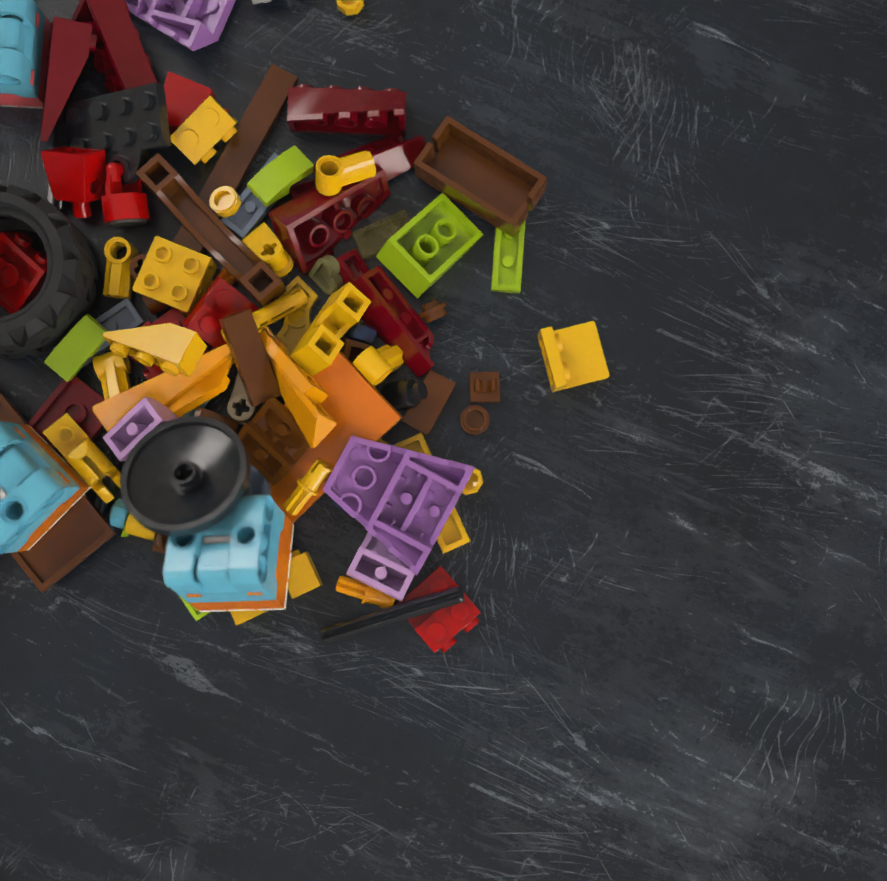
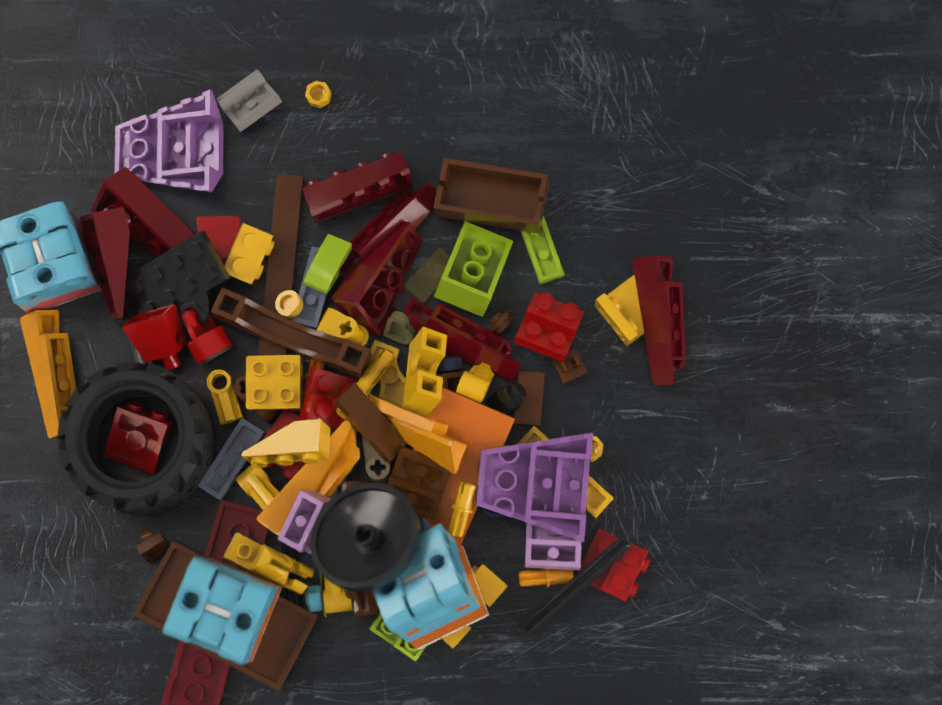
camera: 15 degrees left, 5 degrees down
(76, 348) = (221, 476): lime slope -> none
(337, 172) = (380, 239): yellow piece -> none
(474, 420) = (573, 396): reddish brown plate -> none
(480, 337) = (549, 326): none -> red plate
(601, 375) = (661, 316): none -> dark red wedge

